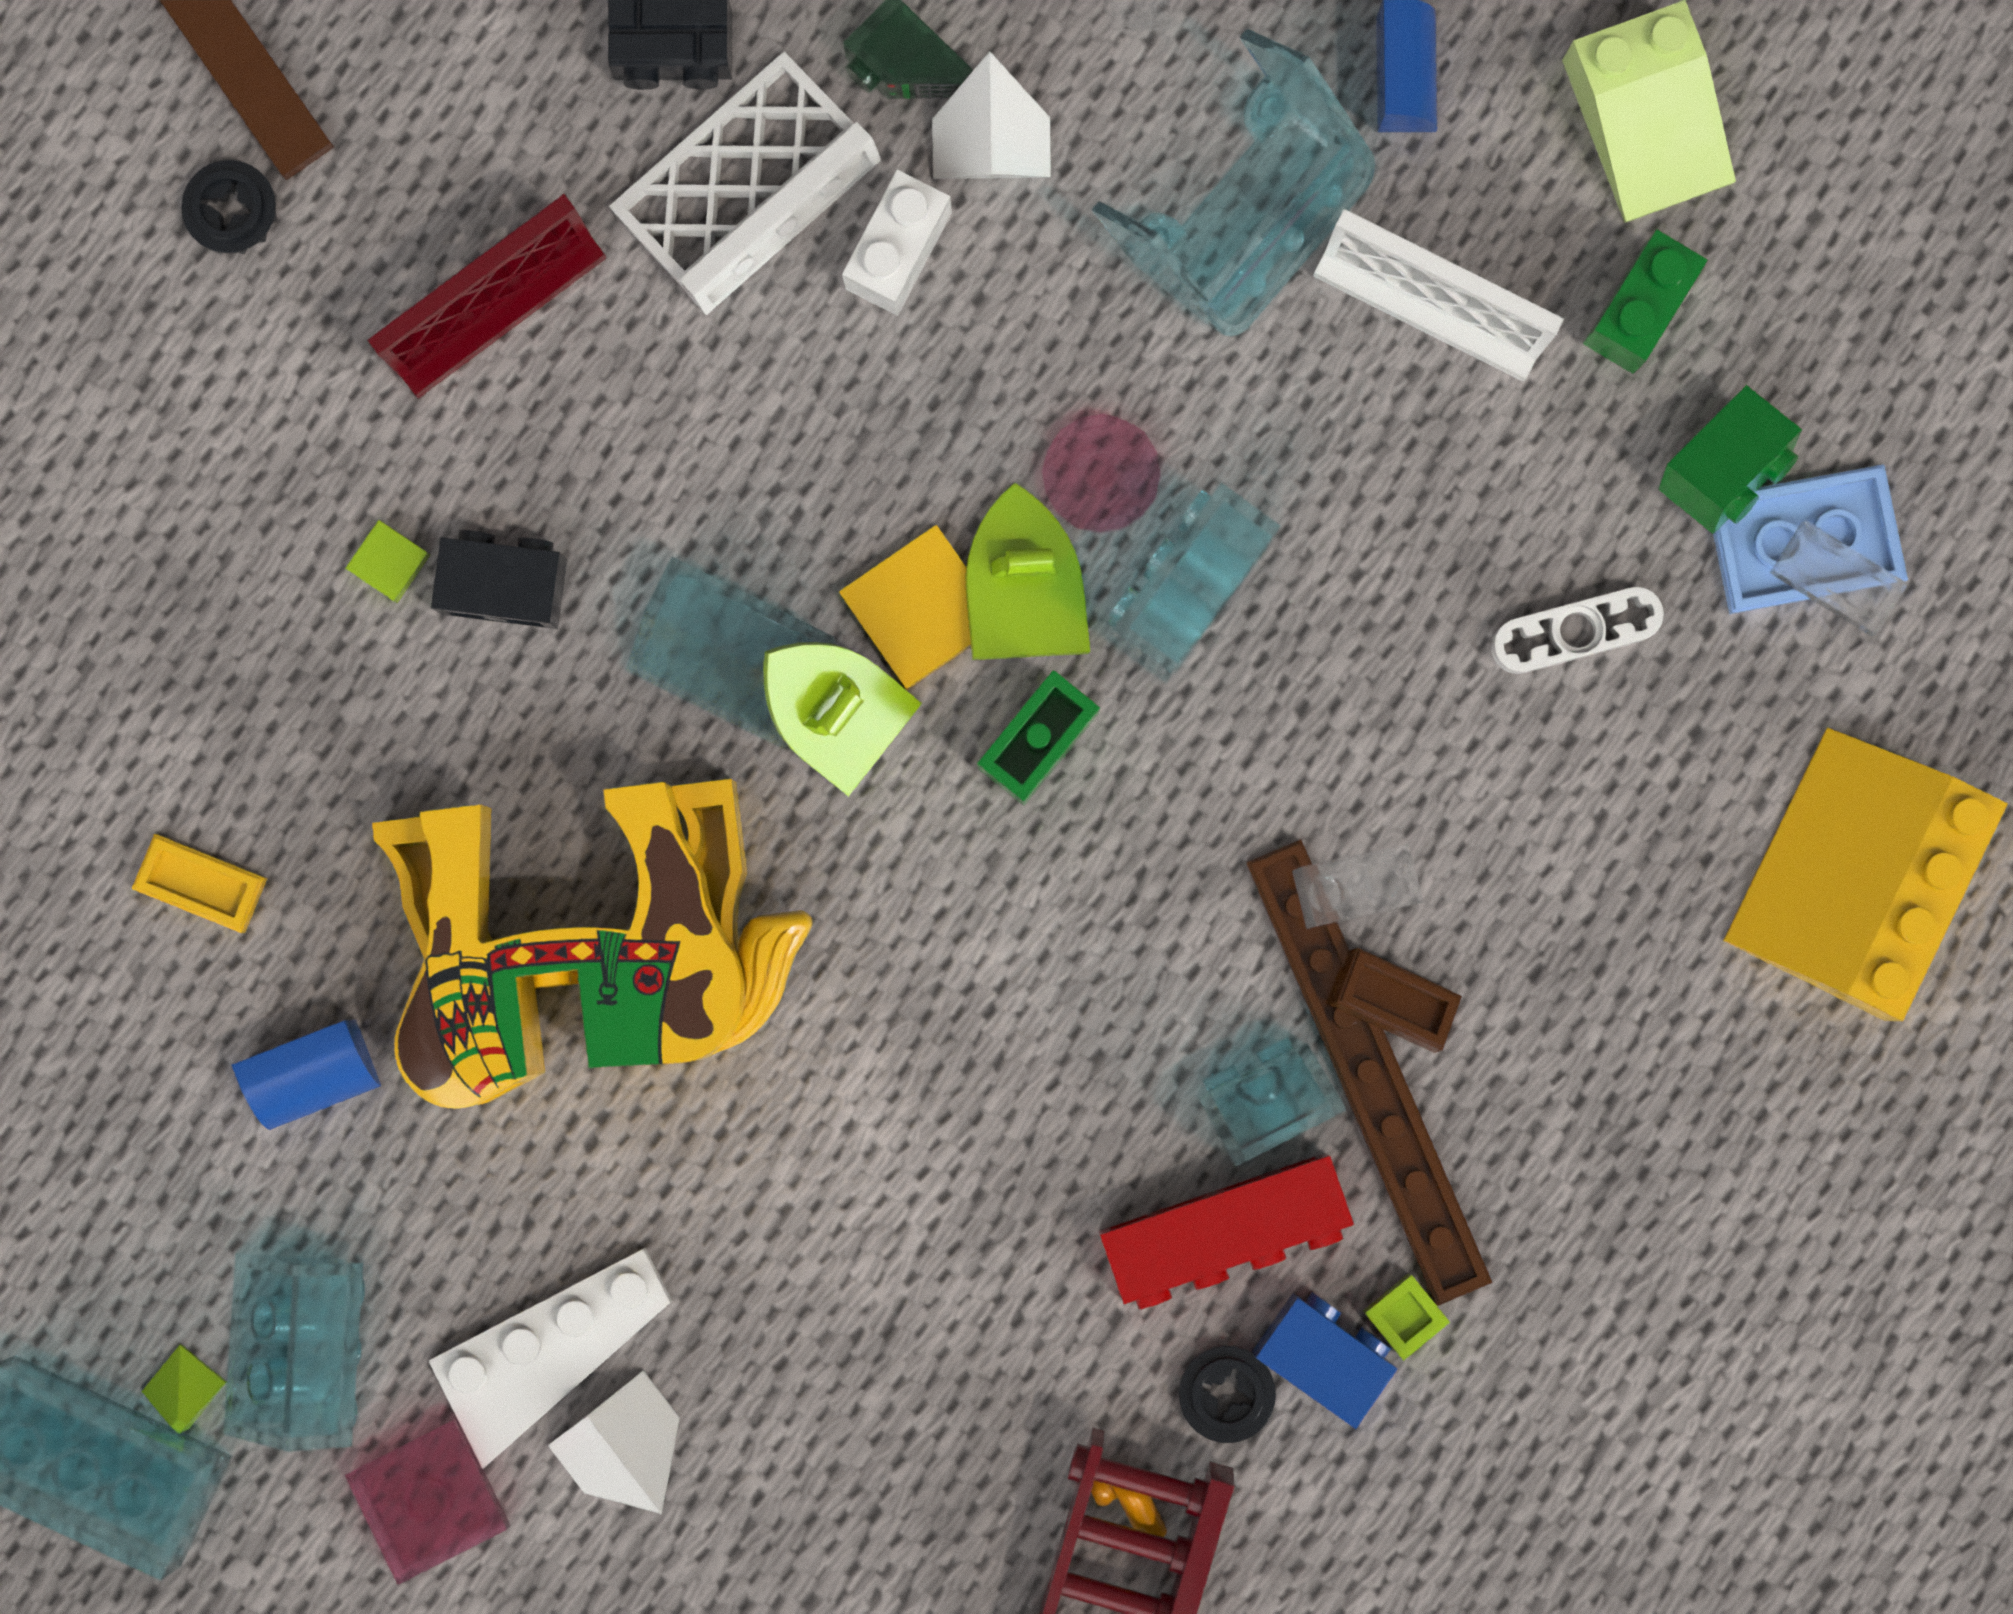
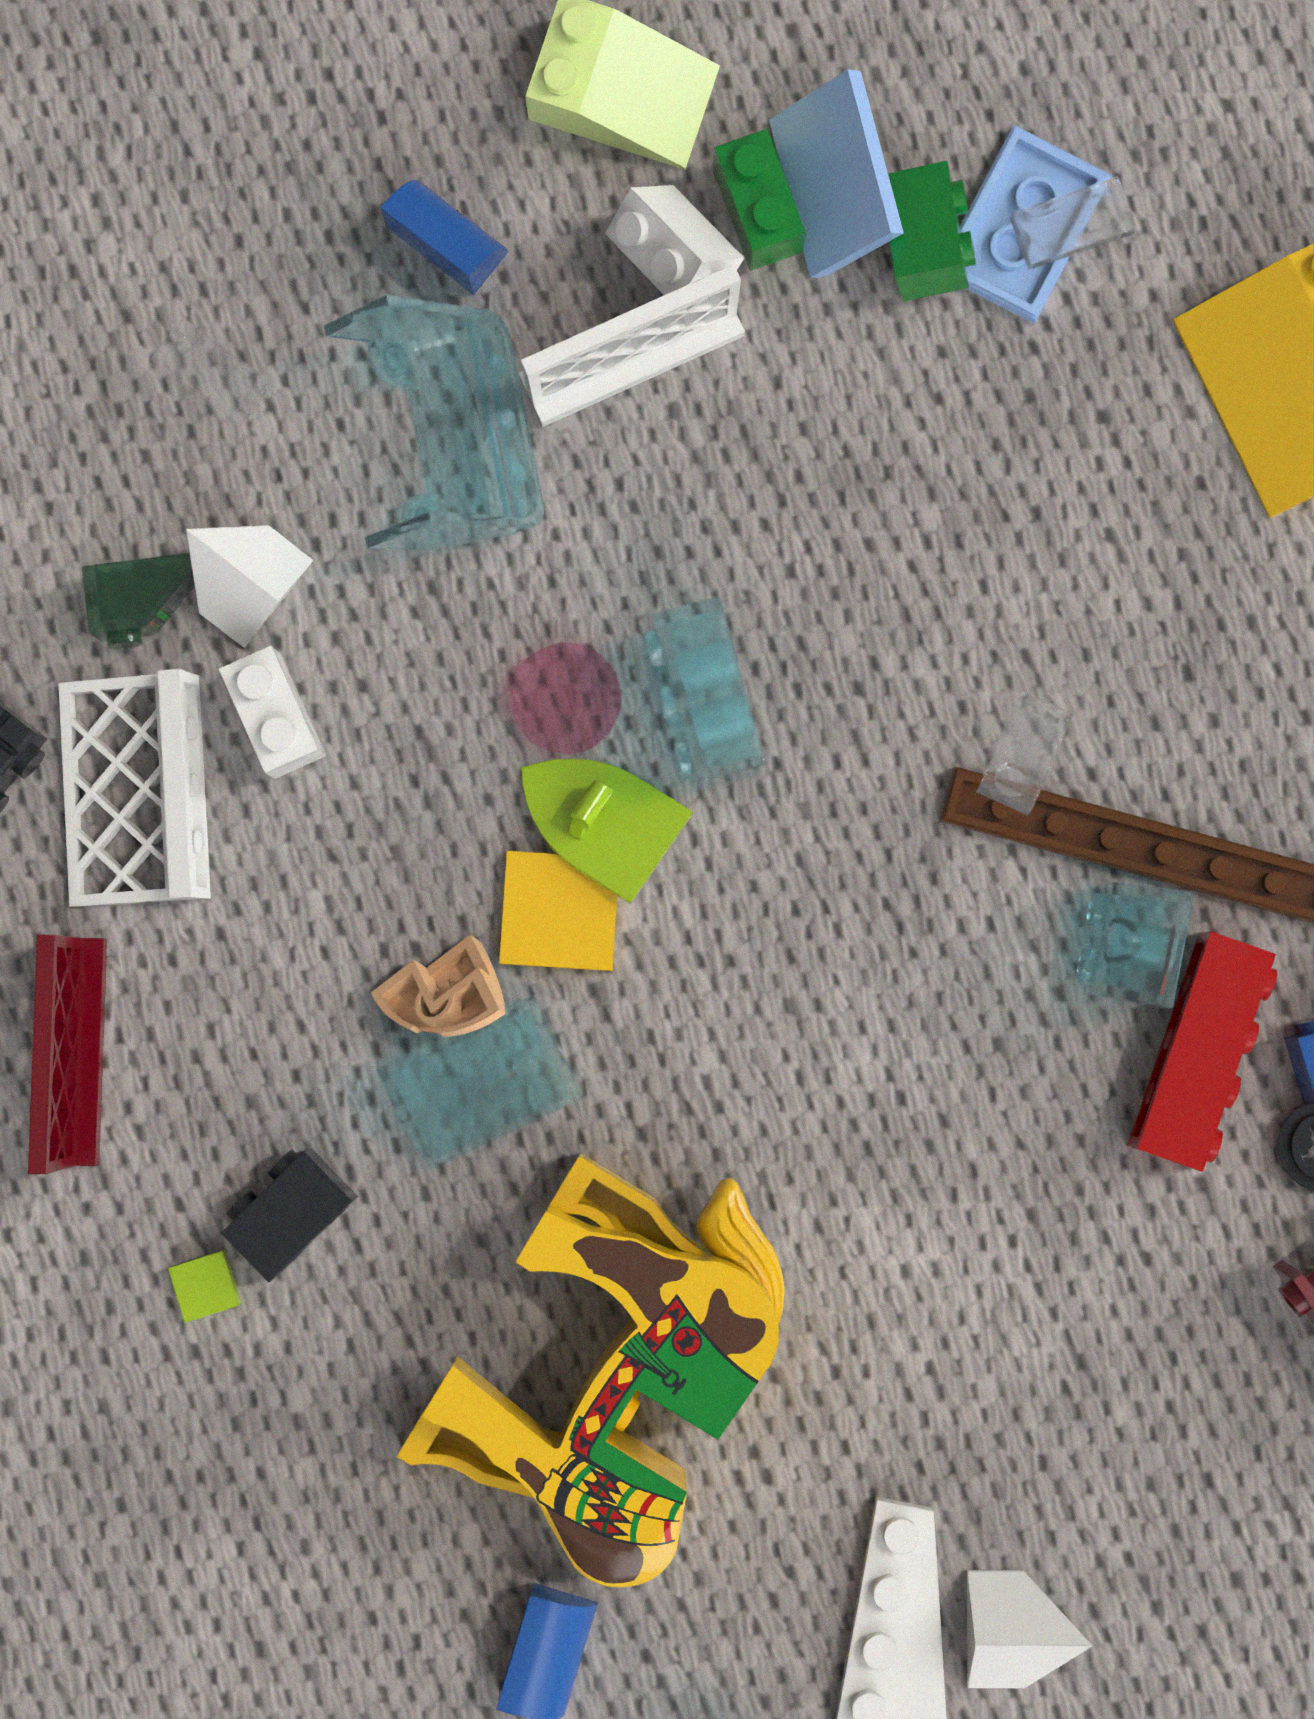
camera: 60 degrees left, 0 degrees up
(199, 883) = (335, 1622): yellow tile -> none
(776, 569) = (446, 997): none -> light nougat brick
(834, 708) = (586, 1036): shield -> none
(1038, 737) = (729, 900): green brick -> none
(1395, 1000) = (1129, 791): reddish brown tile -> none
(1551, 253) = (669, 238): none -> white brick
(1615, 604) = (990, 412): white beam -> none
(1717, 348) = (836, 174): none -> light blue tile

